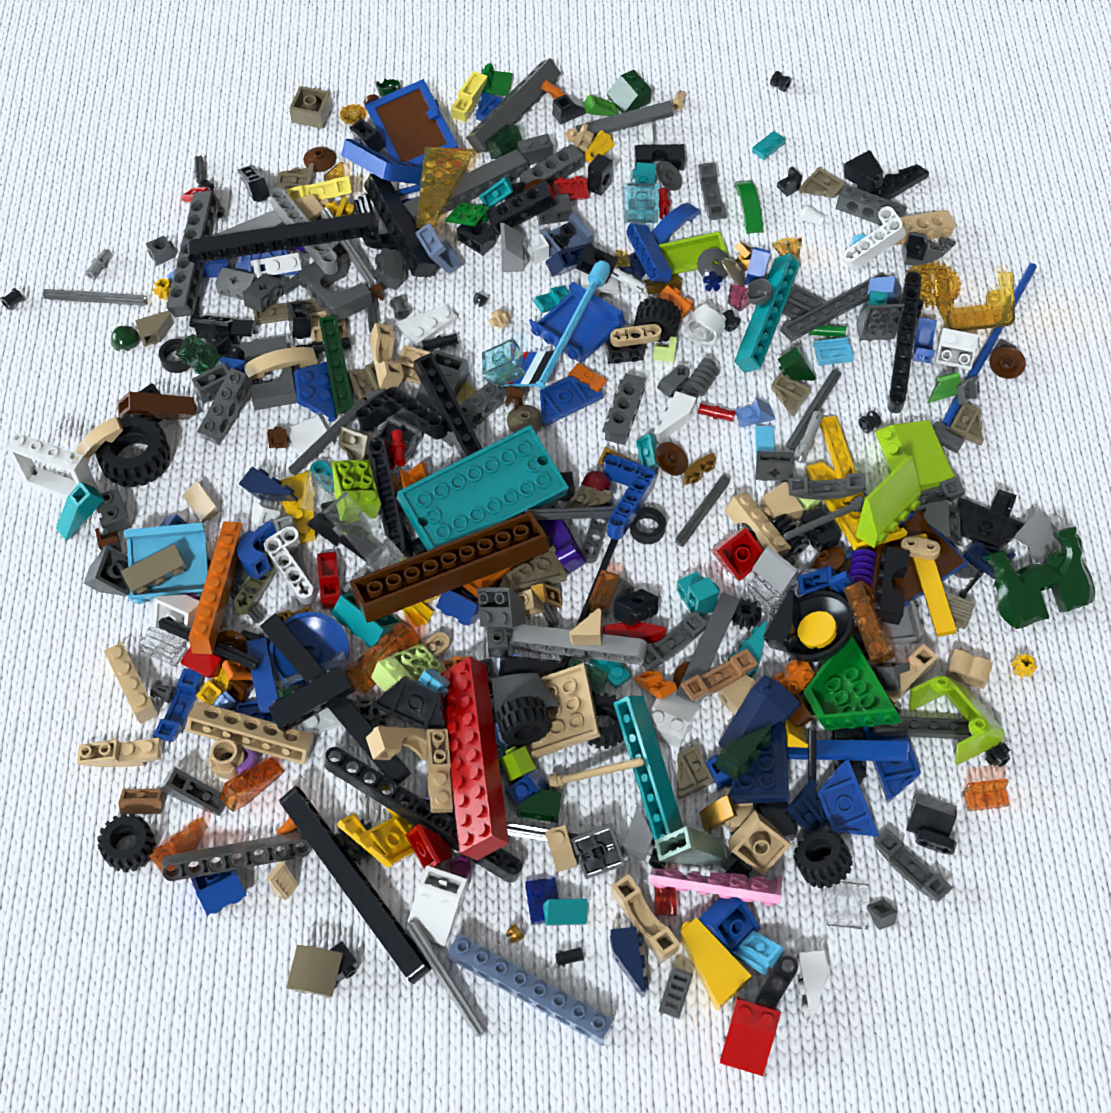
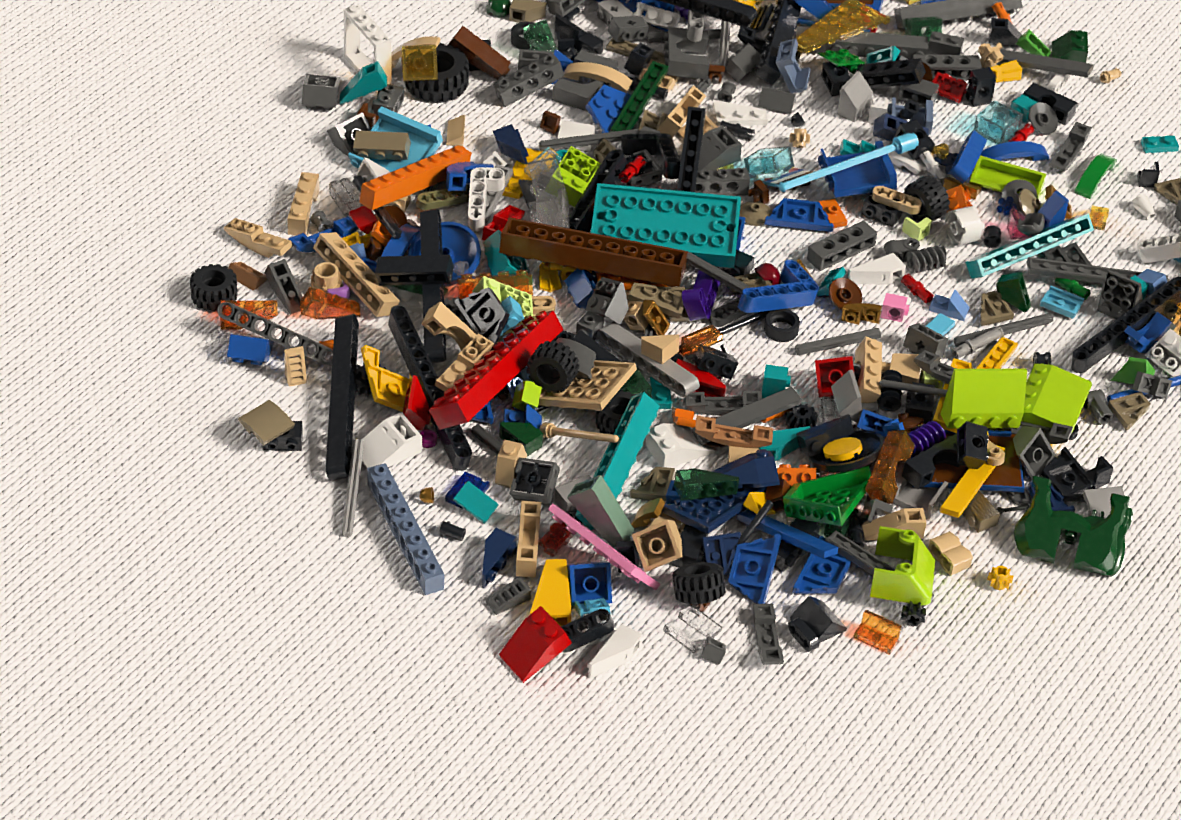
camera: 35 degrees right, 15 degrees down
(38, 539) = (320, 91): none -> dark grey slope
(121, 458) = (419, 63): none -> clear yellow slope
(447, 289) = (777, 100): none -> dark grey panel
(719, 444) = (894, 307): none -> bright pink brick
(914, 555) = (972, 445): none -> black brick

